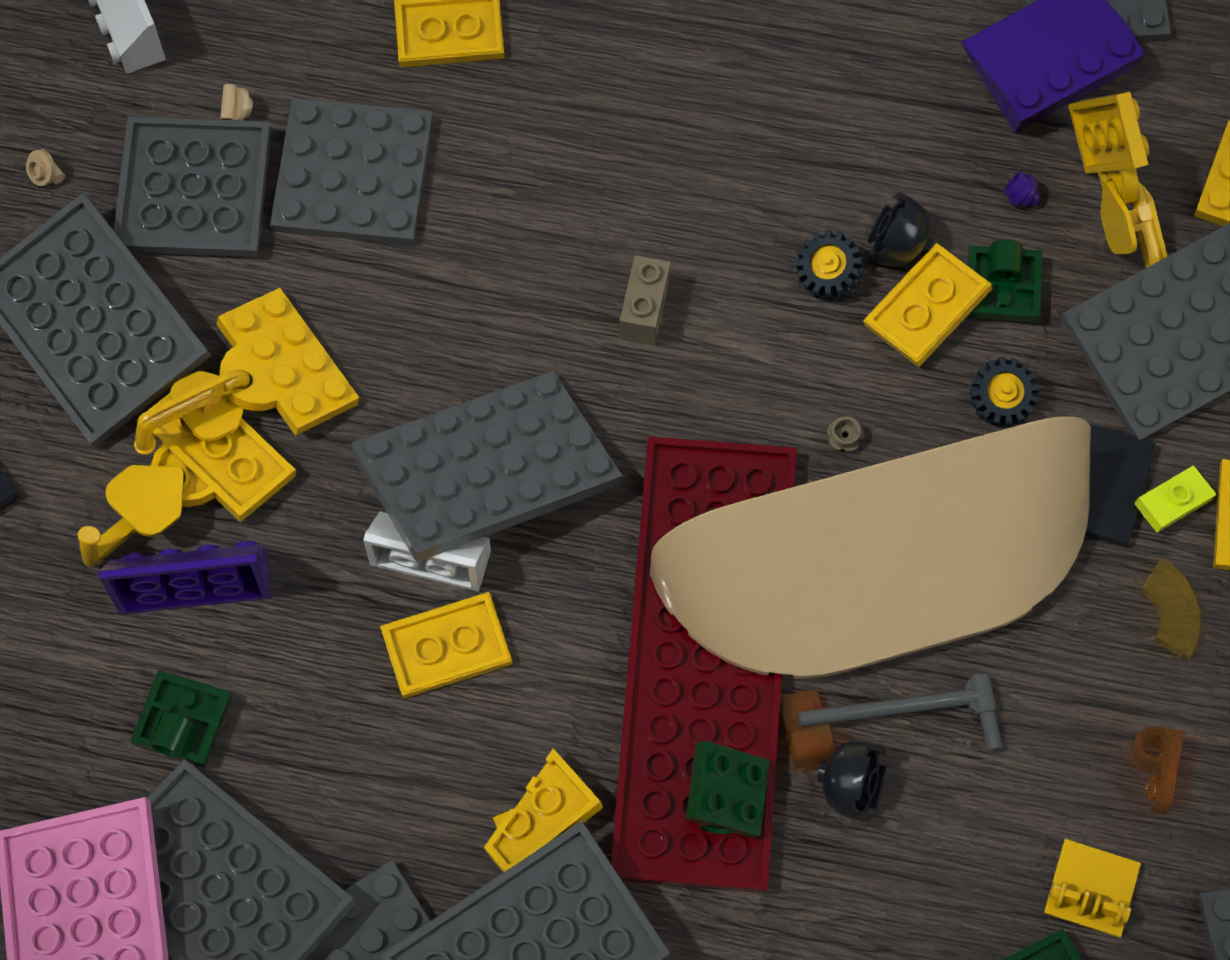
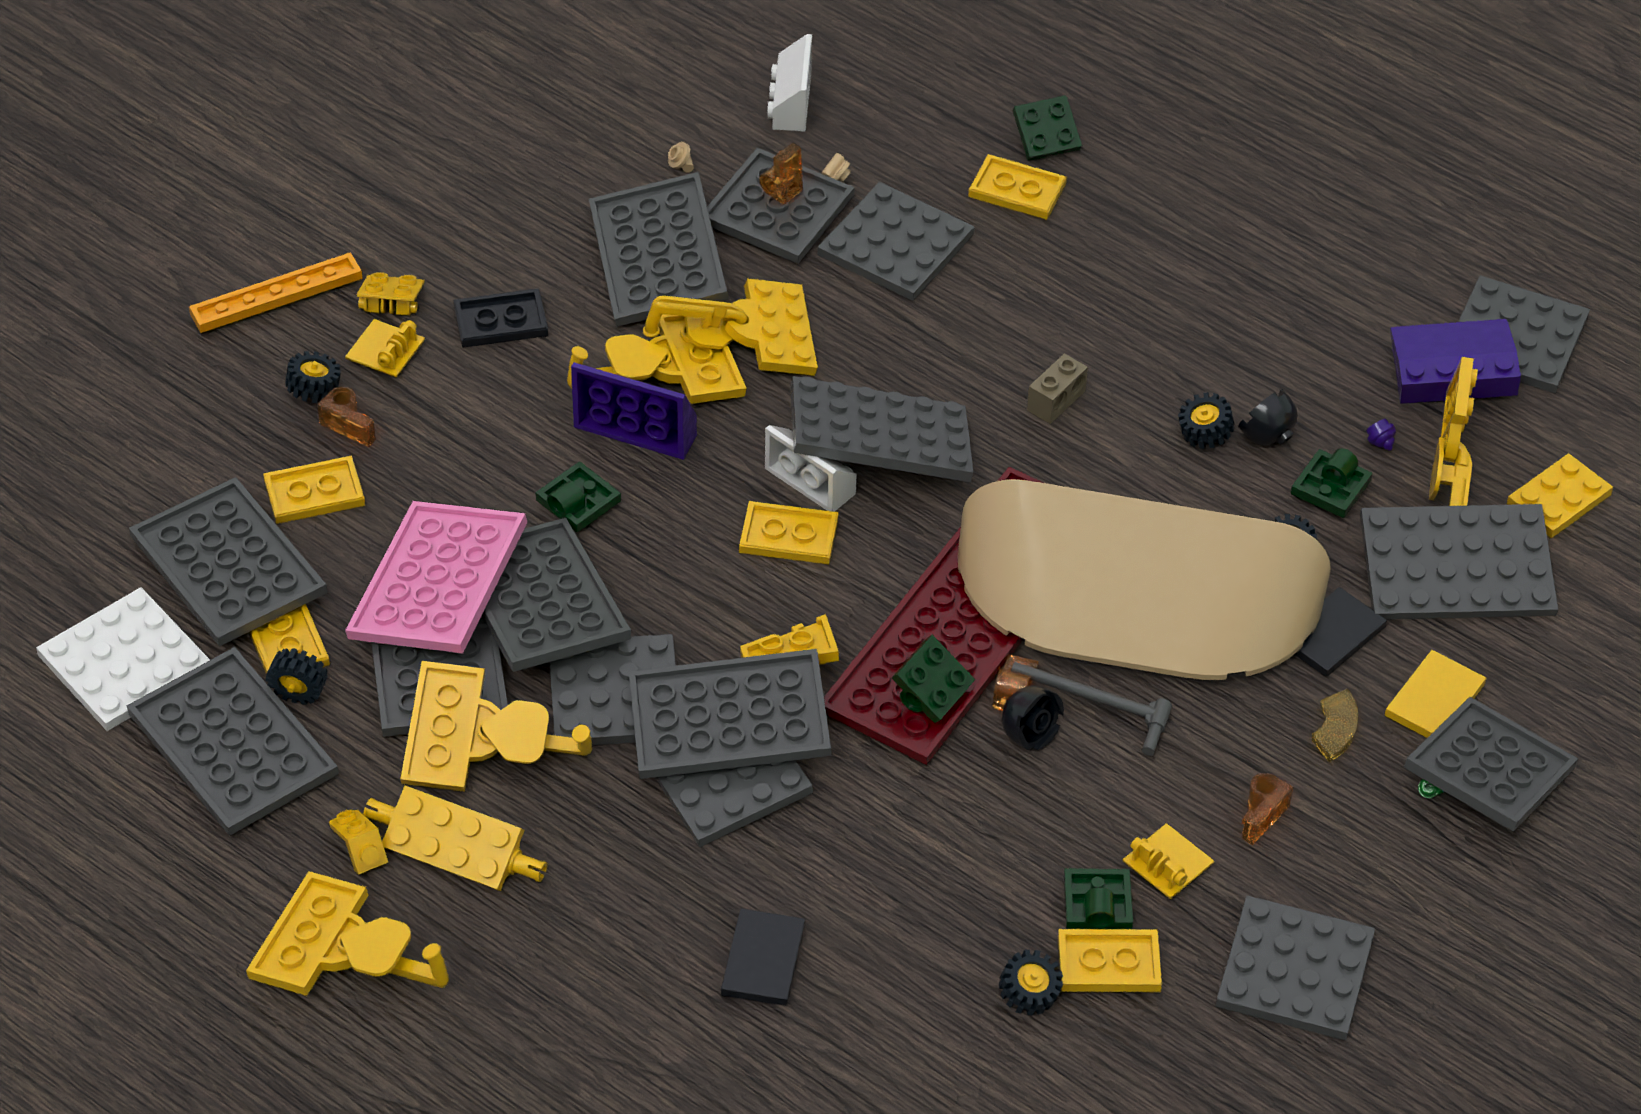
camera: 25 degrees right, 20 degrees down
(186, 153) = (784, 178): none -> clear orange plate
(927, 305) = (1265, 471): yellow tile -> none
(1175, 499) = (1379, 658): neon yellow plate -> none

